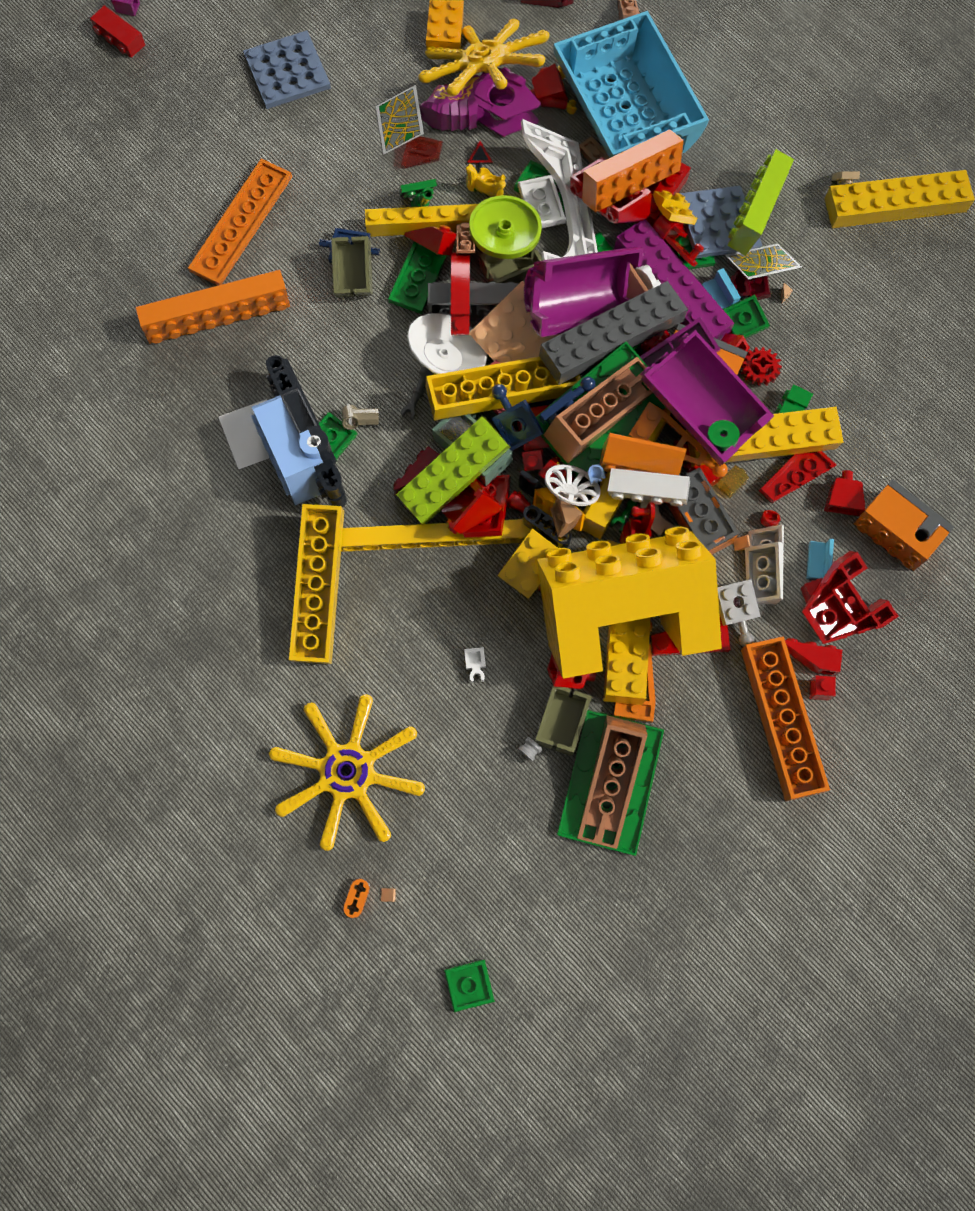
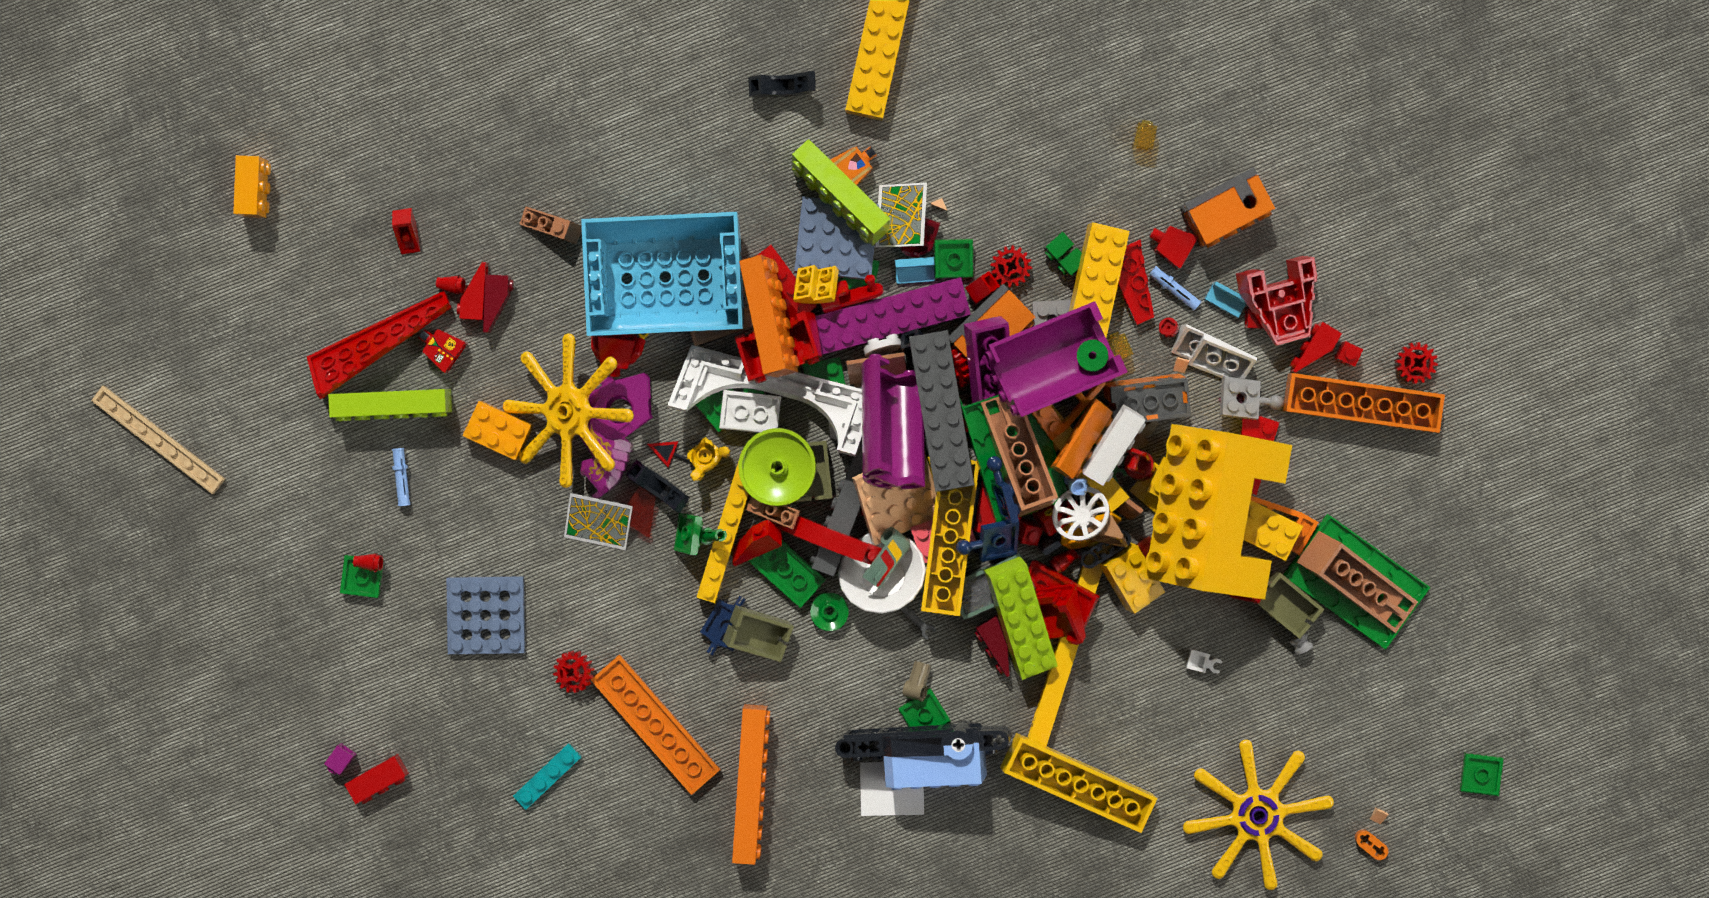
camera: 70 degrees left, 15 degrees up
(165, 156) = (547, 776): none -> teal plate
(263, 143) = (580, 668): none -> red gear
(390, 317) = (822, 619): none -> green dish
(450, 153) = (658, 485): none -> black arch
(462, 340) = (895, 547): none -> sand green door
(592, 536) = (1129, 509): none -> nougat slope
(786, 214) = (855, 164): none -> orange torso
(802, 531) = (1156, 274): none -> light blue pin
(821, 137) = (782, 85): none -> black arch
(845, 176) = (837, 86): tan plate -> none
(851, 760) = (1411, 356): none -> red gear
(927, 435) = (1144, 135): none -> clear yellow brick

